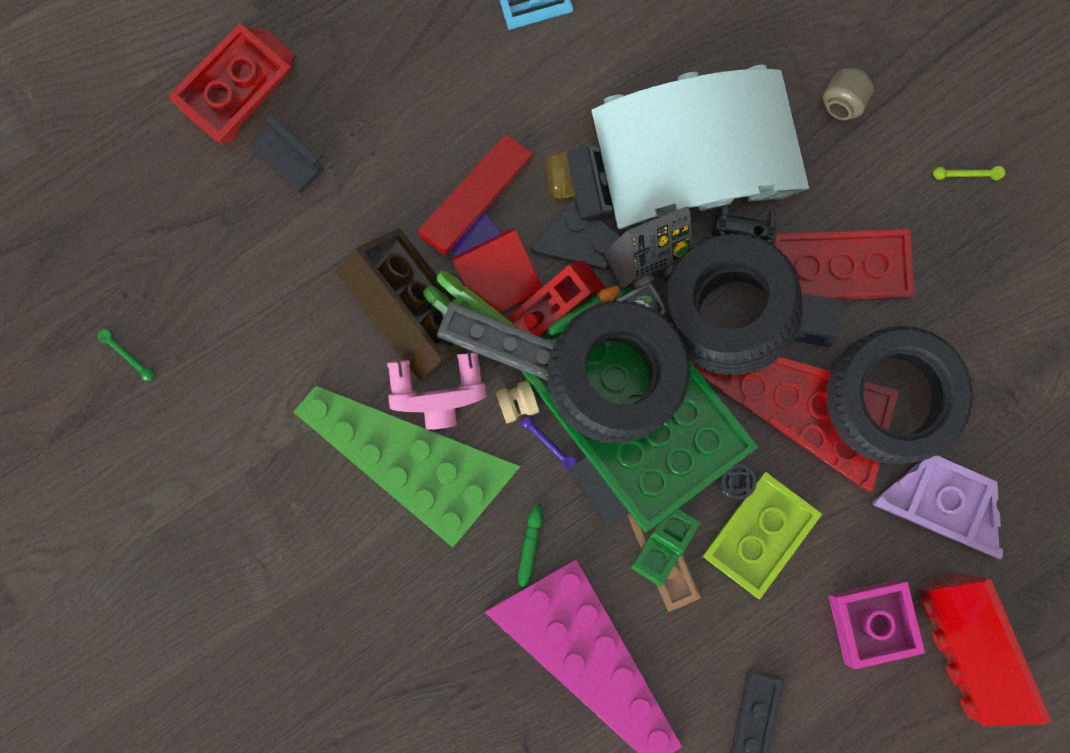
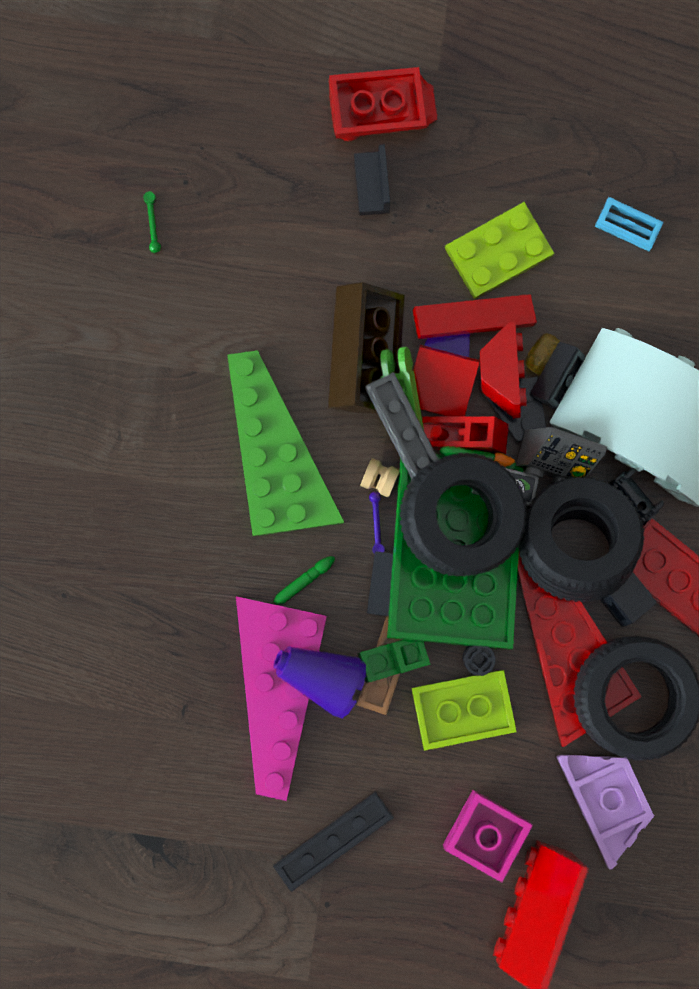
camera: 40 degrees right, 0 degrees up
(437, 404) = (327, 434): bright pink connector -> none
(446, 120) = (499, 250): none -> lime plate
(541, 219) = (503, 370): none -> red slope
(621, 615) = (322, 677): none -> dark purple cone

